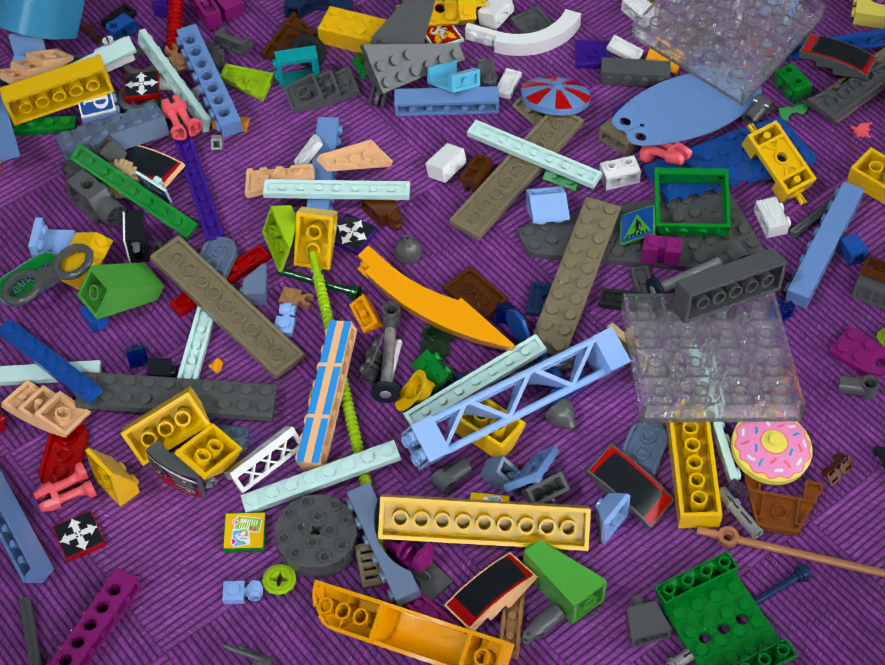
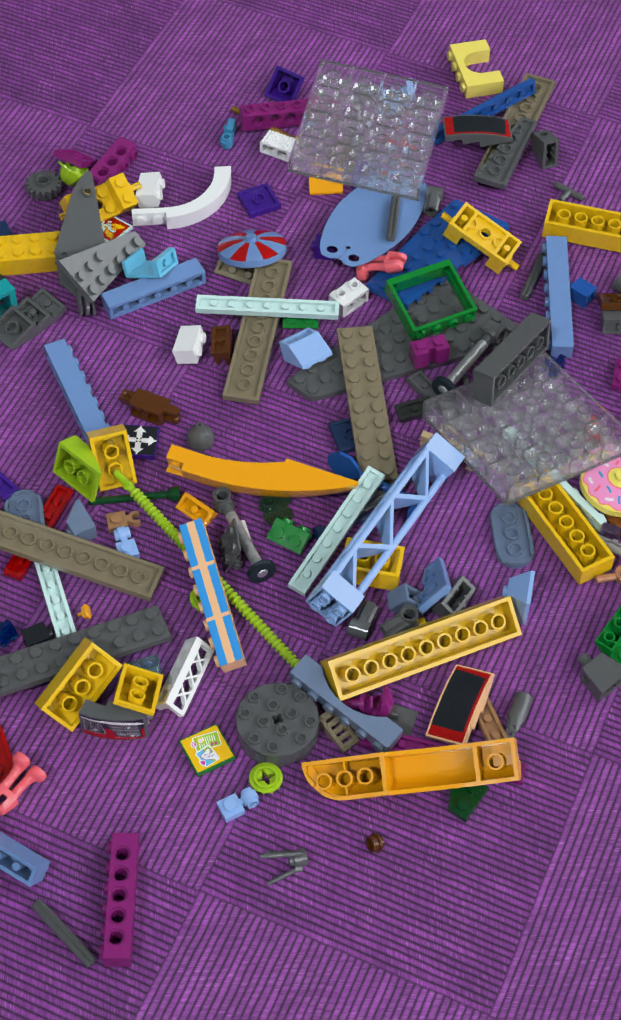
camera: 30 degrees left, 0 degrees up
(79, 536) = (51, 822): tile -> none
(113, 477) = (55, 754): yellow slope -> none
(255, 178) = (34, 420): light nougat wing -> none
(309, 150) = (54, 381): white tile -> none
(321, 477) = (248, 671): light aqua plate -> none
(337, 189) = (105, 405): light aqua plate -> none
(356, 156) = (102, 369): light nougat wing -> none
(360, 66) = (52, 285): green piece -> none
(415, 391) = (286, 559): yellow piece -> none
(476, 292) = (278, 447): reddish brown plate -> none
(481, 491) = (399, 622): none -> dark grey piece
(487, 72) = (180, 248): dark grey hips -> none
(501, 309) = (321, 458): clear blue tile -> none
(508, 83) = (198, 250): white tile -> none
(530, 21) = (186, 189): dark grey tile -> none
(562, 415) = (428, 528): dark grey helmet -> none
(565, 580) = (517, 667): bright green slope -> none
(616, 138) = (327, 267): dark tan brick -> none
(619, 473) = (511, 558): slope -> none
(624, 48) = (286, 186): white tile -> none
(634, 72) = (307, 203): dark grey brick -> none
(636, 224) = (395, 337): piece -> none
(703, 113) = (393, 218): none -> dark grey axle
(772, 217) = (500, 289): white brick -> none
(785, 112) = (467, 187): green piece -> none
(792, 83) = (449, 166): green brick -> none
(862, 130) = (528, 187): coral piece -> none

